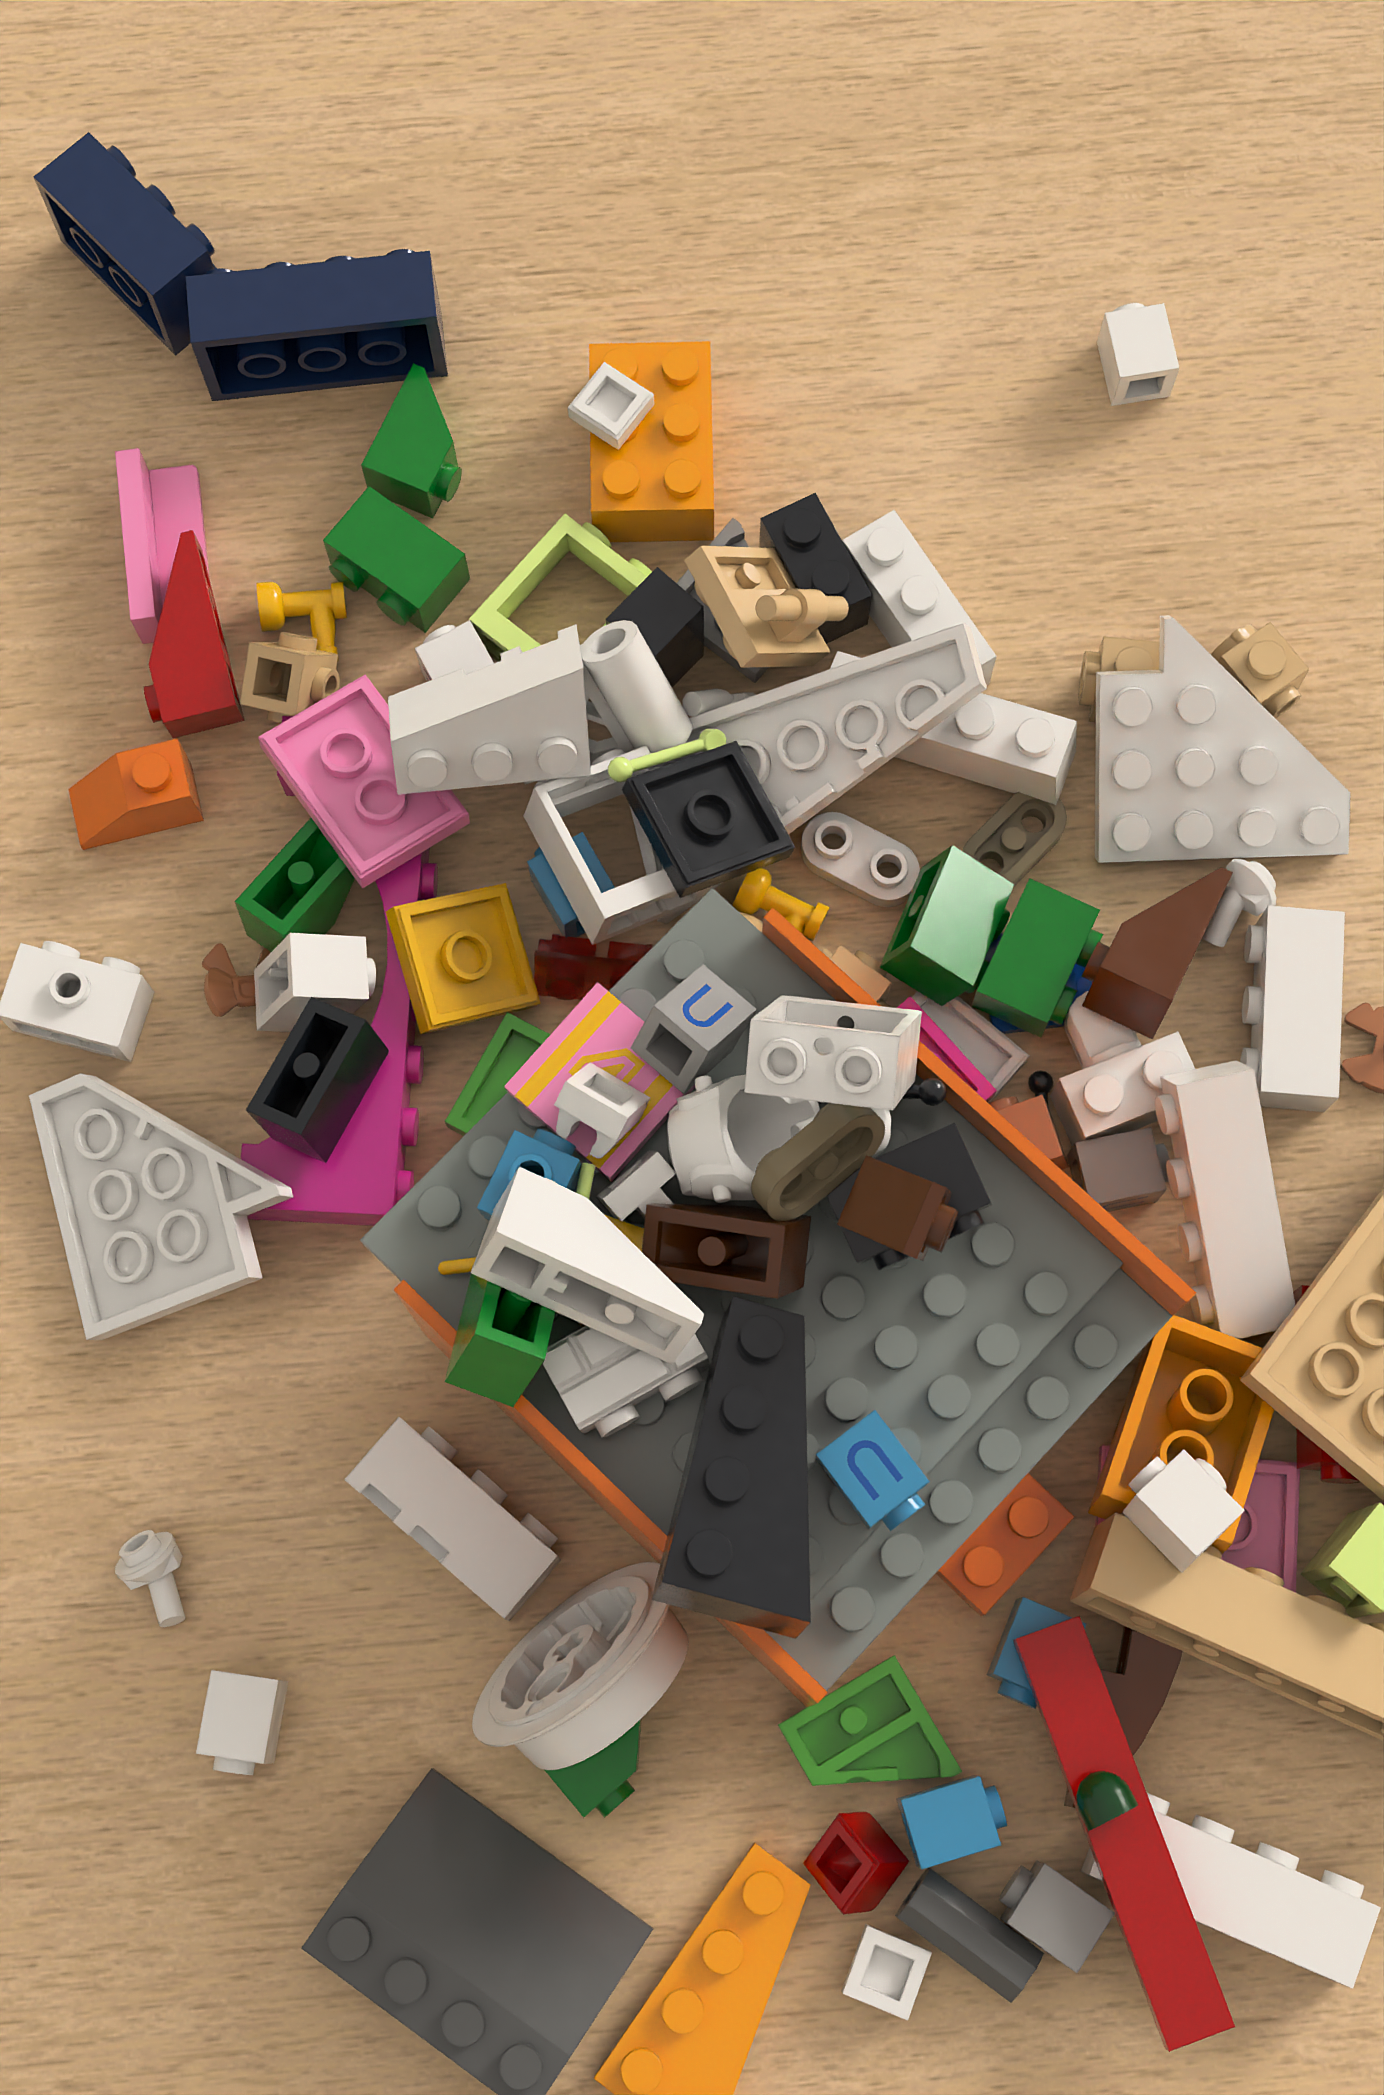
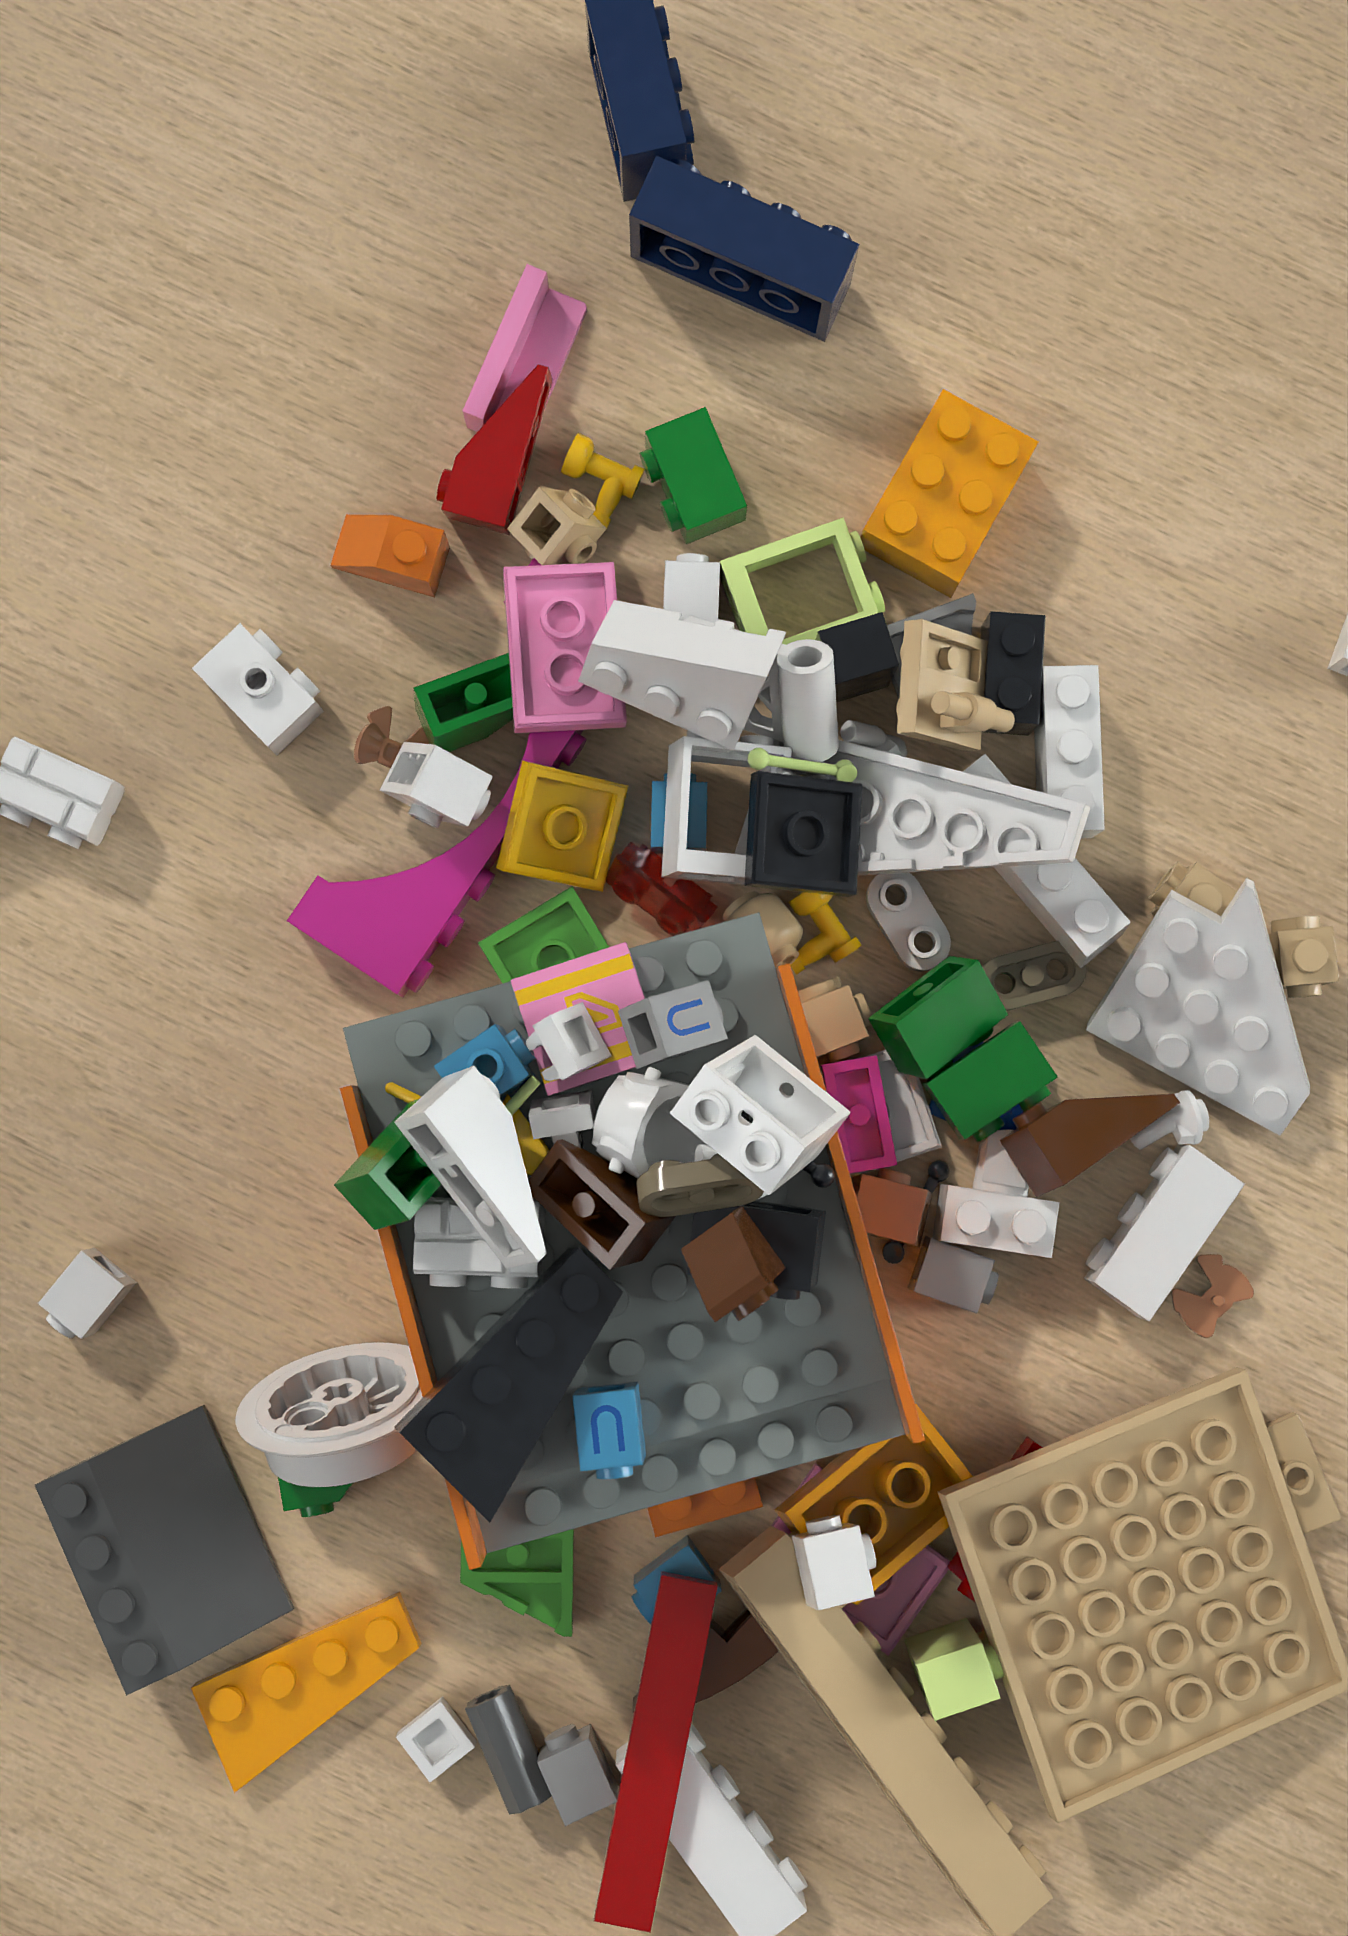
camera: 25 degrees right, 10 degrees up
(144, 1206) = (222, 877): white wing -> none
(150, 1561) = (86, 1140): white plate -> none
(318, 1079) = (395, 866): black brick -> none
(413, 450) = (759, 393): green slope -> none
(456, 1516) = (318, 1244): white wedge -> none
(611, 405) = (927, 454): white tile -> none
(856, 1862) = (460, 1651): red slope -> none
(952, 1820) = (542, 1667): dark azure brick -> none
(1103, 1798) = (652, 1728): dark green hinge -> none
(1226, 1198) = (1016, 1350): white brick -> none

